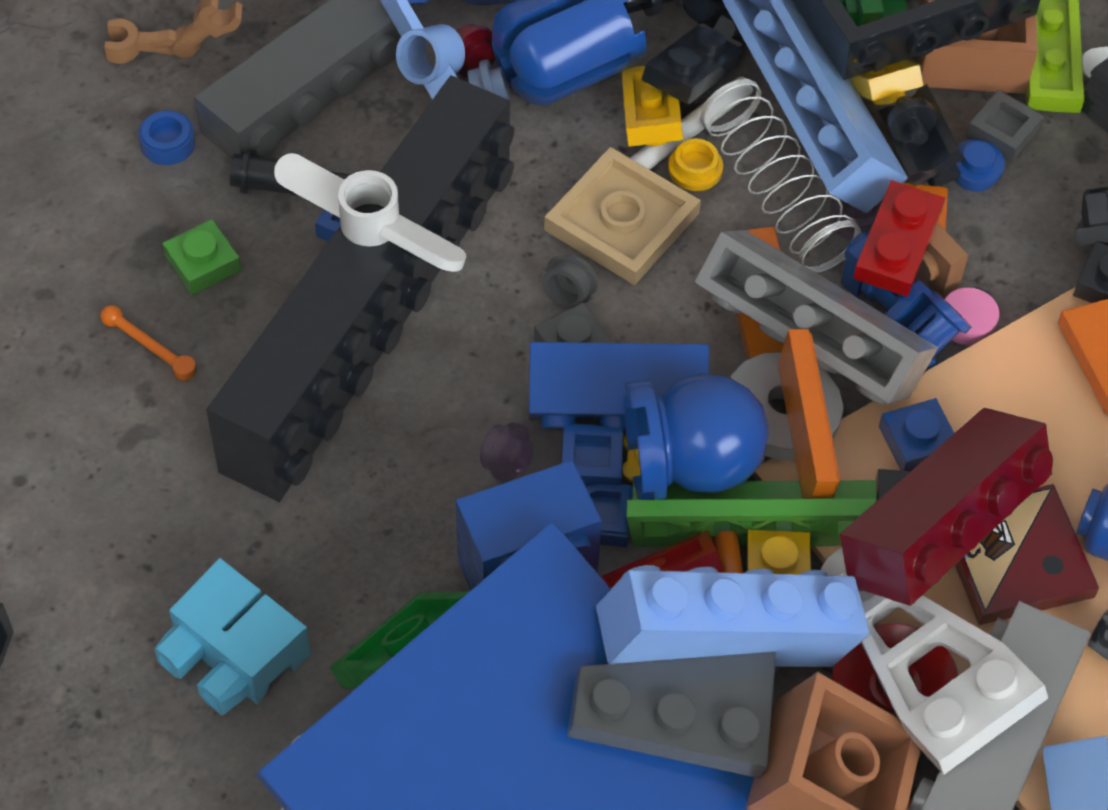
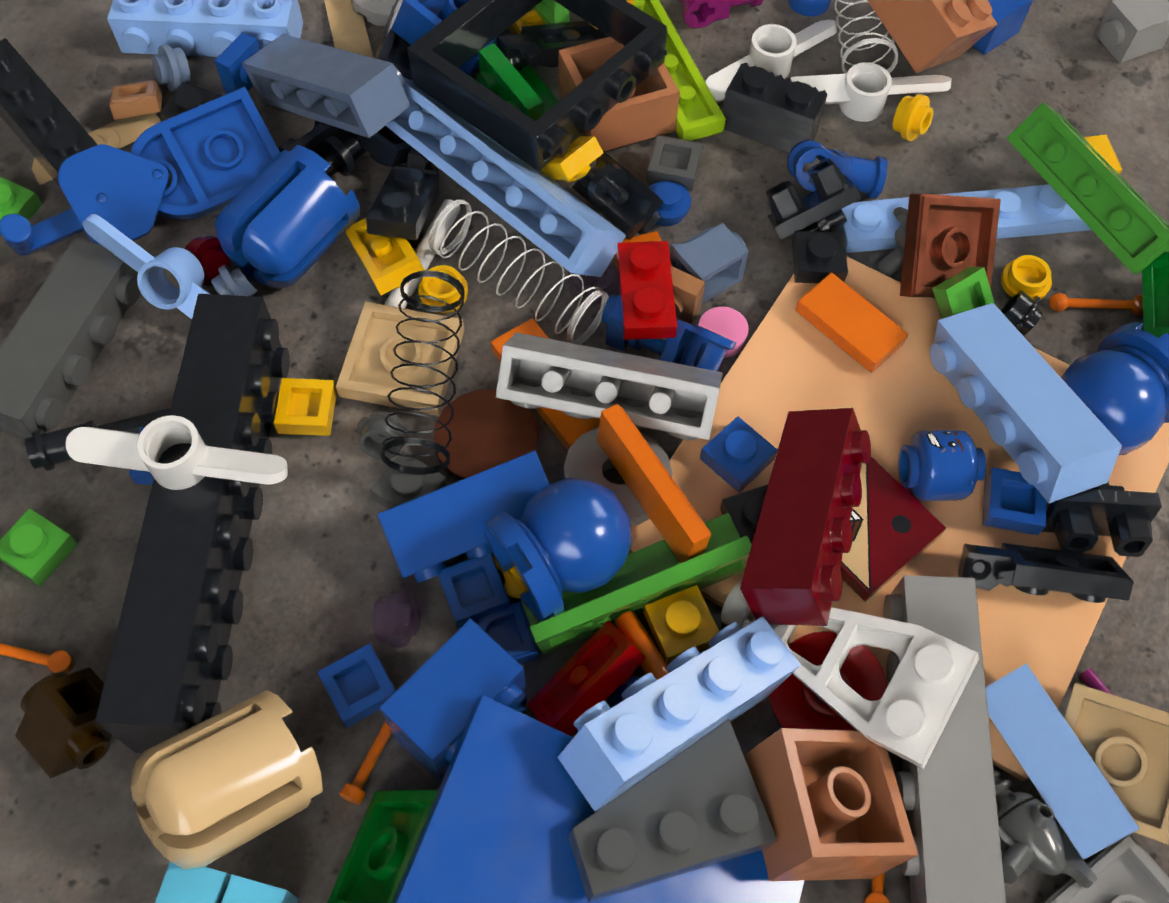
camera: 25 degrees left, 5 degrees up
(171, 413) = (61, 722): none -> dark brown brick
(293, 511) = (223, 782): none -> tan cylinder
(399, 586) = (353, 792): none -> orange piece
(437, 490) = (357, 685): none -> blue plate
(507, 226) = (305, 407): none -> yellow plate
(586, 283) = (408, 440): none -> black piece
(672, 312) = (484, 433): none -> copper tile
(994, 239) = (713, 257): none -> sand blue window

